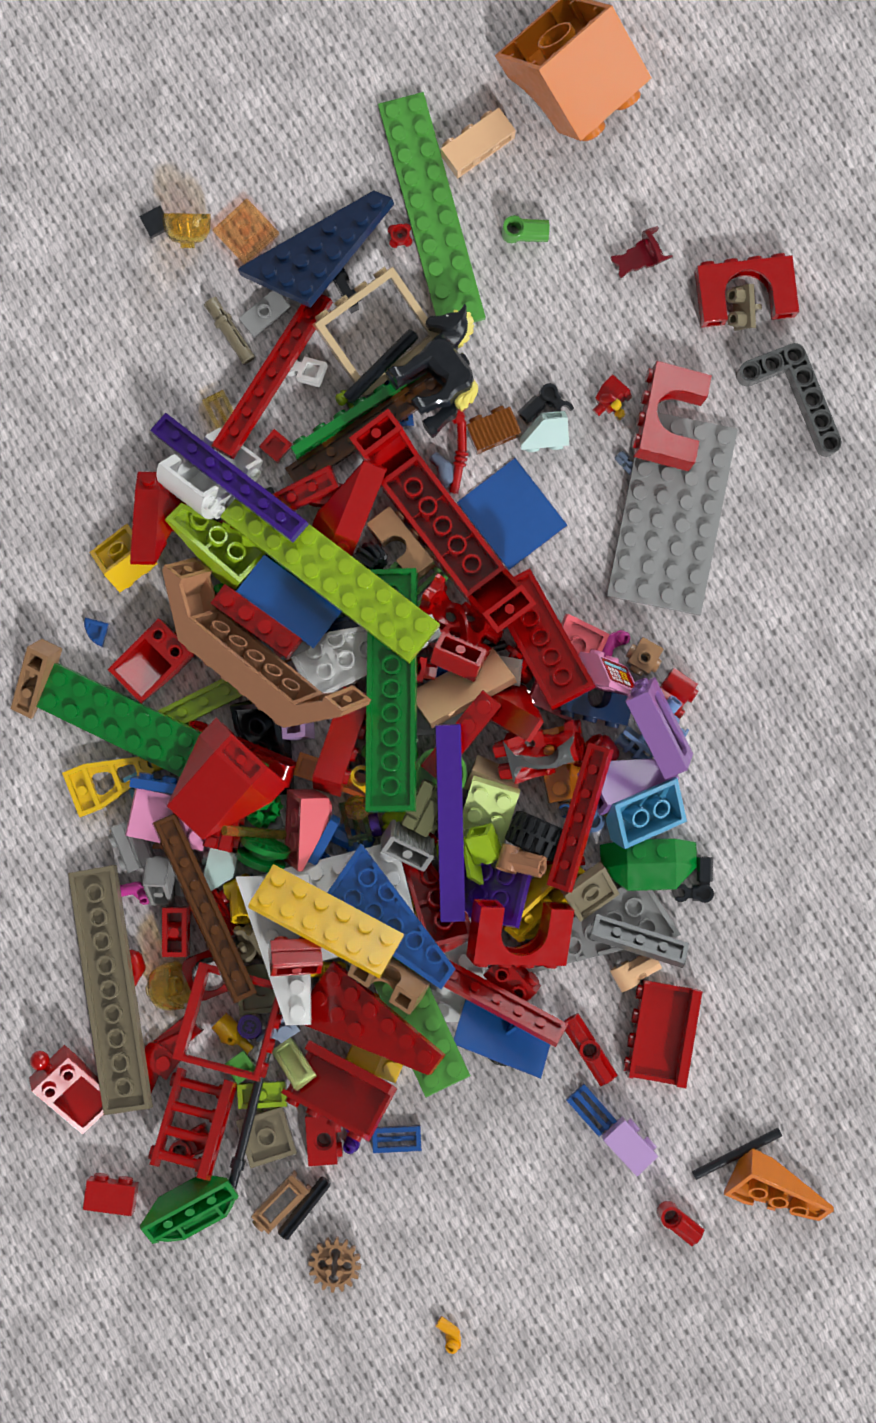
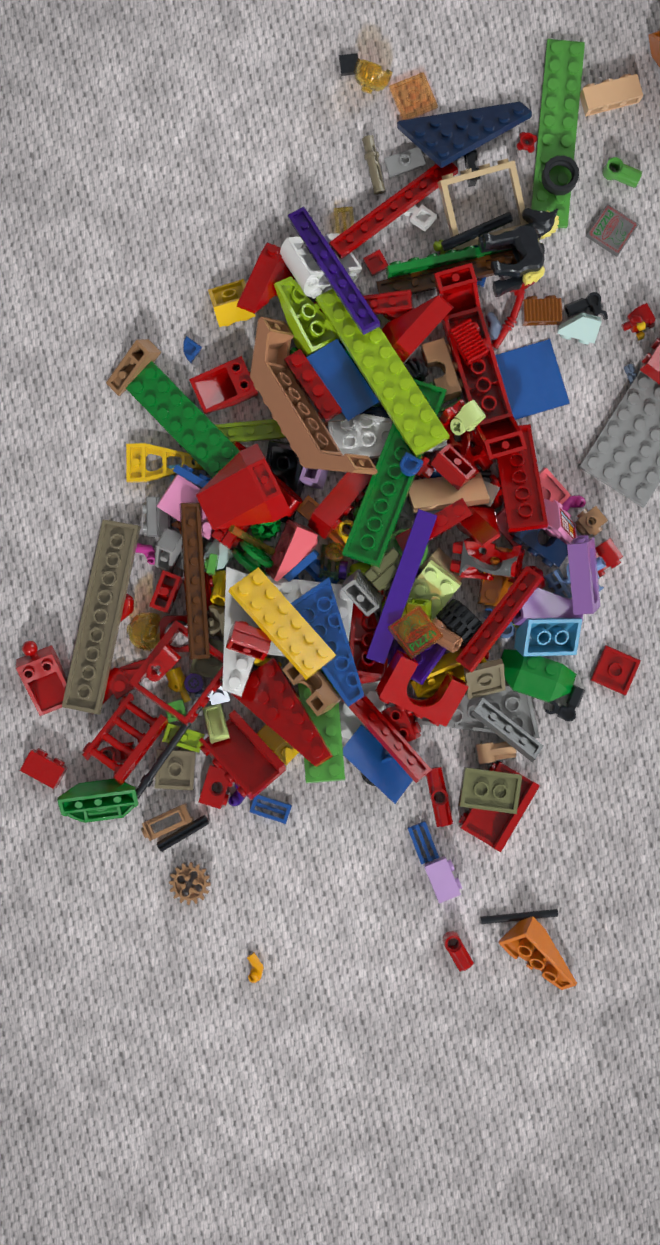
camera: 20 degrees right, 0 degrees up
(204, 1017) = (164, 661): none -> red piece
(217, 879) = (211, 564): none -> bright green plate
(406, 675) = (410, 464): none -> blue tile
(420, 500) = (469, 341): none -> red brick
(452, 593) = (467, 419): none -> yellowish green piece
(454, 243) = (564, 161): none -> black tyre
(487, 871) = (415, 632): none -> clear orange tile
(539, 301) = (612, 230): none -> flat silver tile
(646, 1021) = (490, 790): none -> olive plate
(739, 820) = (615, 670): none -> red tile

